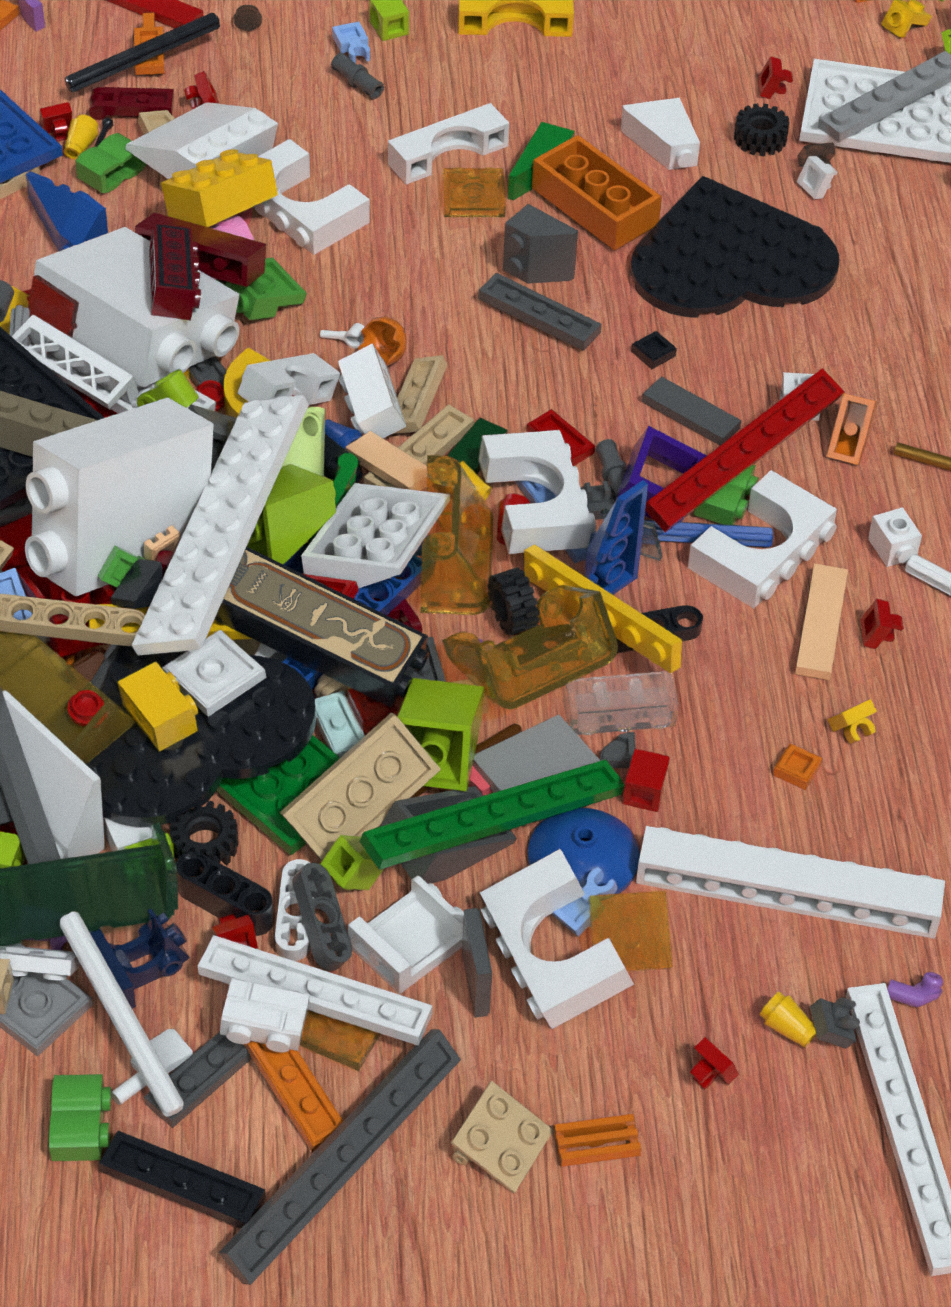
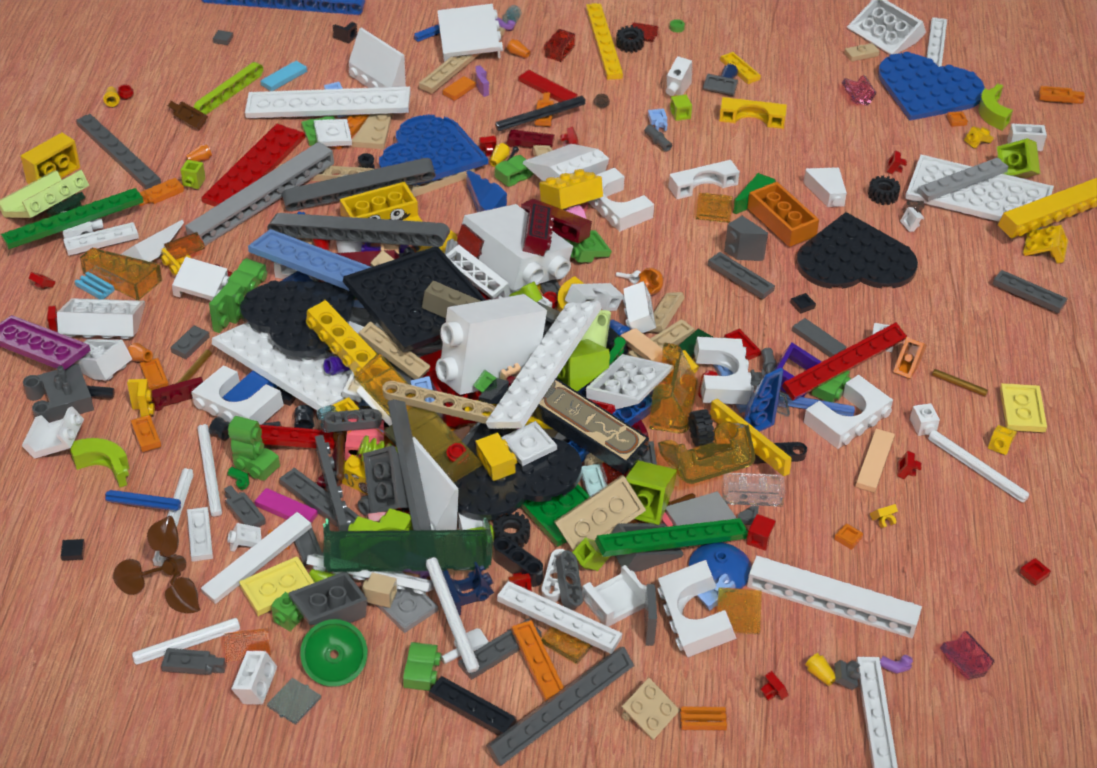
camera: 10 degrees right, 5 degrees down
(264, 1015) = (529, 625): white brick -> none

